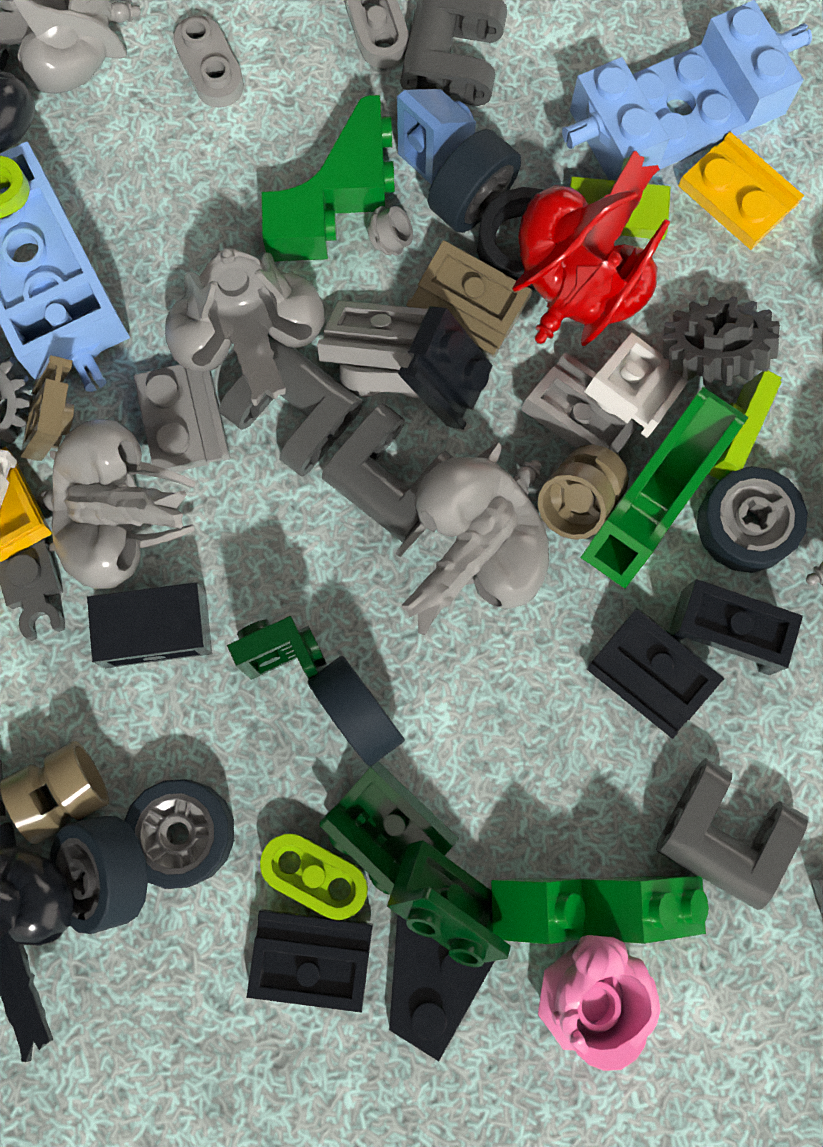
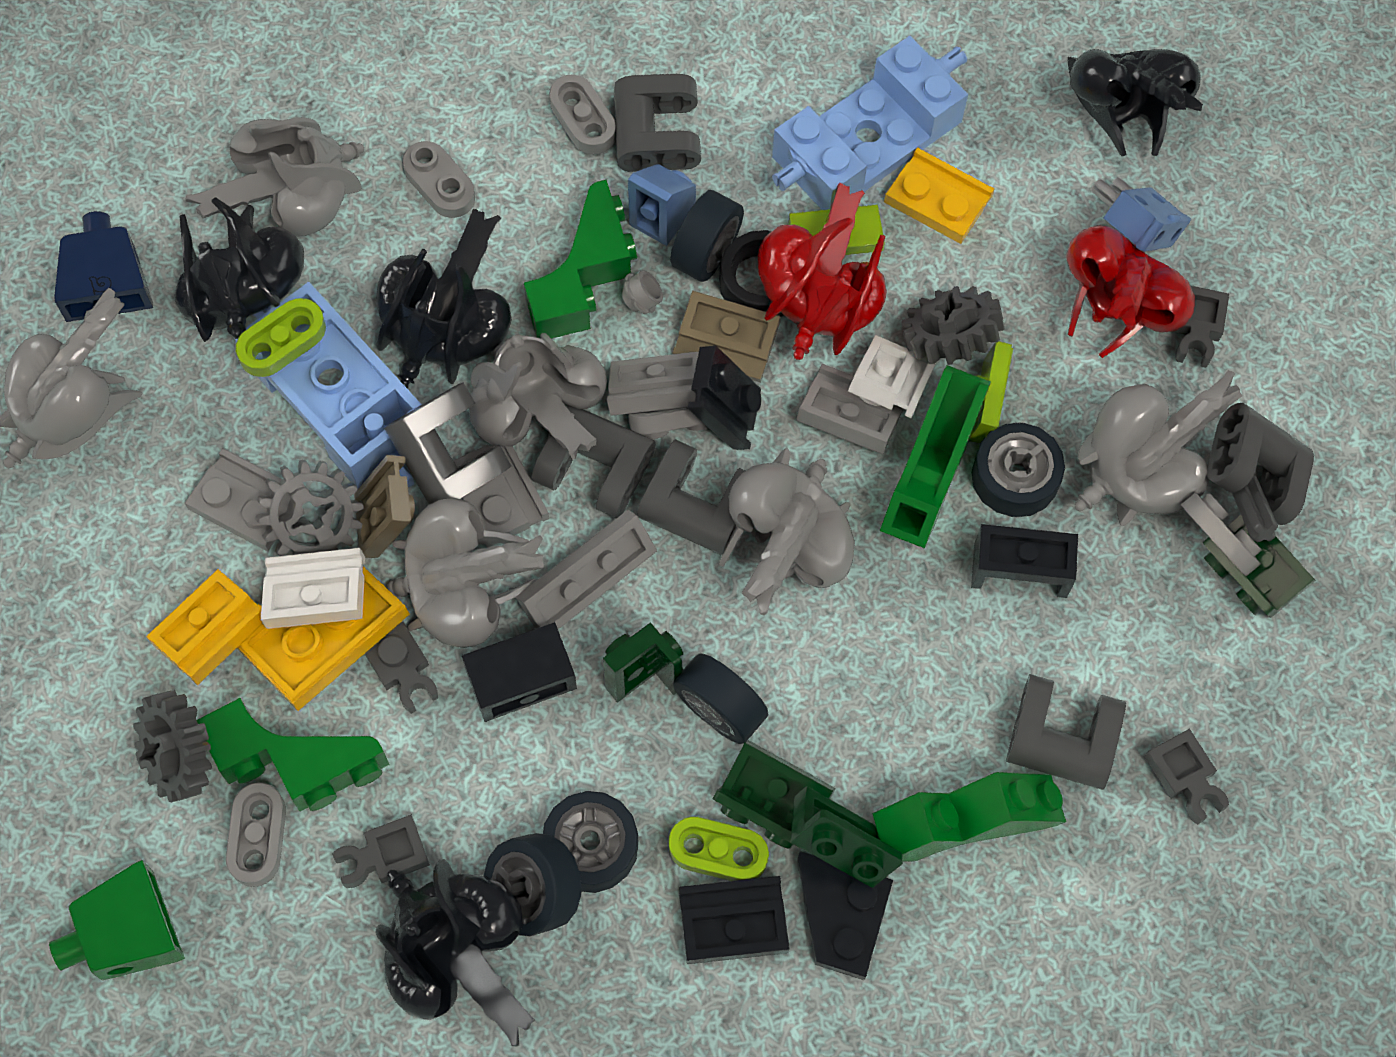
camera: 15 degrees left, 10 degrees down
(72, 782) = (486, 815): dark tan wheel -> none
(103, 368) = (429, 459): none -> dark grey connector
(165, 209) = (444, 316): none -> black hair
(250, 531) = (587, 572): none -> light grey plate
(583, 491) = (868, 474): dark tan wheel -> none
(600, 1002) = (988, 886): bright pink piece -> none
(655, 672) = (967, 614): black plate -> none

